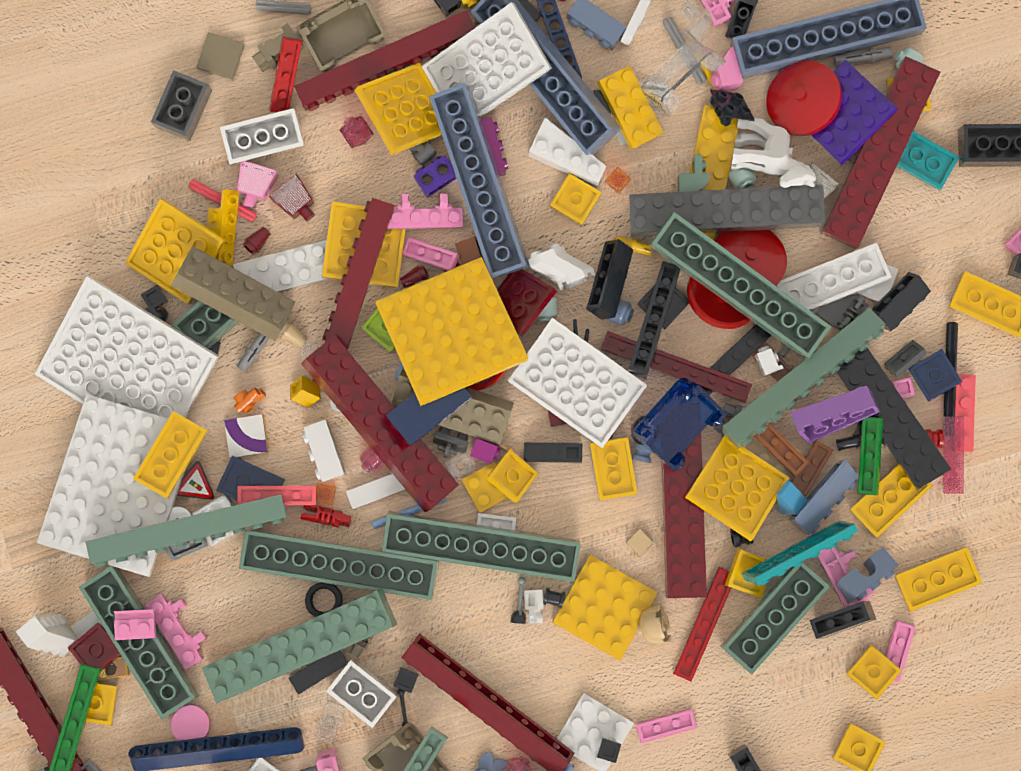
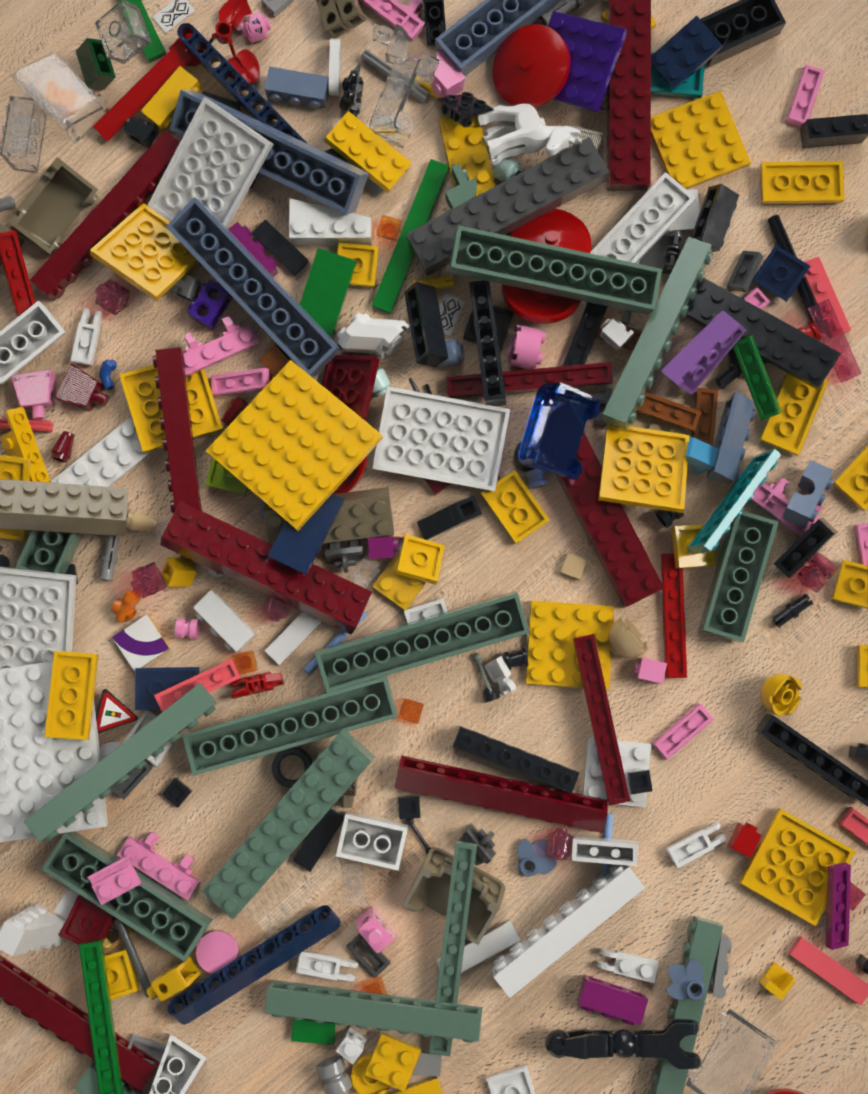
camera: 25 degrees left, 0 degrees up
(120, 696) = (139, 969): none -> dark grey bar
(144, 730) = (173, 980): none -> yellow torso
(218, 575) = (177, 792): none -> black tile
(276, 386) = (147, 580): none -> clear pink brick
(290, 442) = (187, 628): none -> bright pink wheel
(318, 157) = (87, 339): none -> white hinge
(320, 192) = (105, 372): none -> blue arm
(445, 599) = (411, 710): none -> clear orange tile
(454, 739) = (484, 843): none -> dark grey hips
(514, 682) = (516, 759): none -> black brick
(517, 154) = (280, 247): none -> black tile
(541, 209) = (327, 288): none -> green tile
(601, 683) = (601, 720): none -> dark red plate
(636, 275) = (450, 310): none -> white sticker
(642, 185) = (403, 252): none -> green tile
(643, 45) = (352, 92): none -> black hinge
(662, 660) = (650, 670): none -> bright pink brick
(686, 337) = (525, 347): none -> bright pink brick
(763, 733) = (780, 693): none -> yellow cylinder
(807, 667) = (792, 610): none -> black pin
(844, 644) = (816, 573): none -> clear pink wheel
(919, 227) = (698, 141): none -> yellow plate
(942, 147) = (685, 52): none -> dark blue plate

